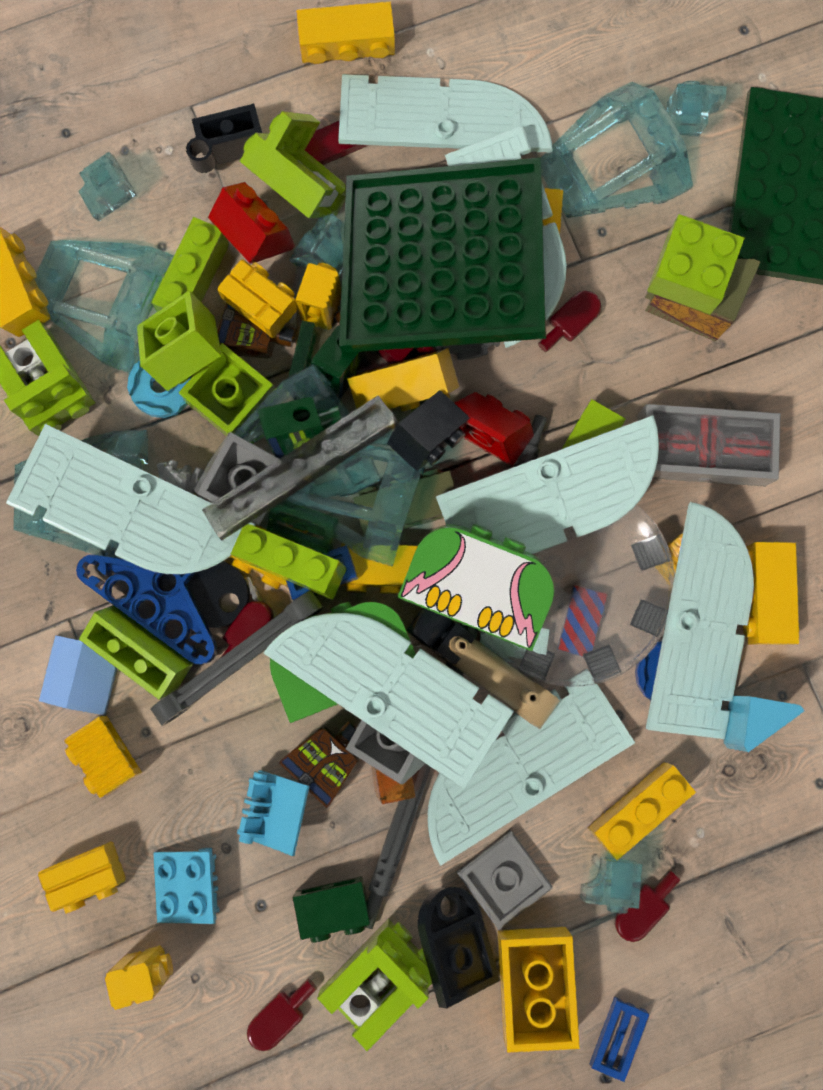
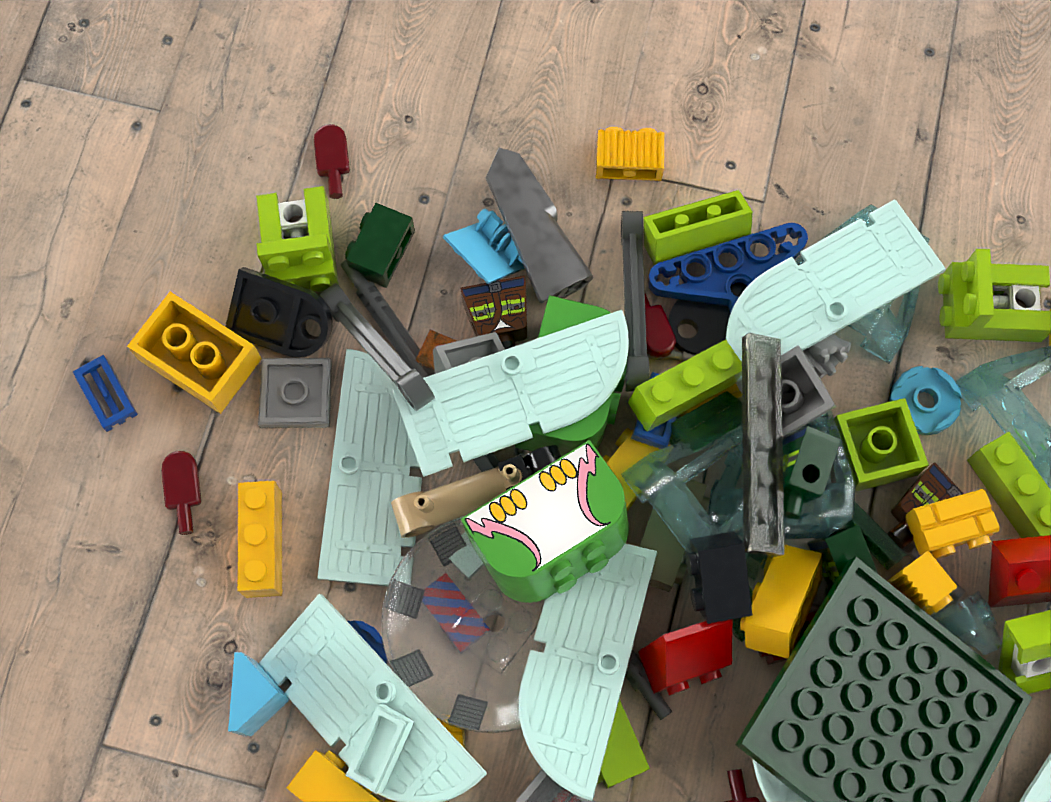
camera: 130 degrees right, 10 degrees down
(77, 677) = (707, 173): light blue slope -> none
(81, 877) = (547, 85): yellow brick -> none
(138, 977) = (441, 74): yellow brick -> none
(178, 341) = (954, 426): lime brick -> none
(186, 887) = (474, 149): medium azure hinge -> none
(225, 793) = (532, 223): none -> flat silver panel
(451, 781) = (406, 379): none -> dark grey piece
(614, 885) = (220, 468): clear light blue brick -> none
(726, 594) = (379, 748): none -> light aqua tile

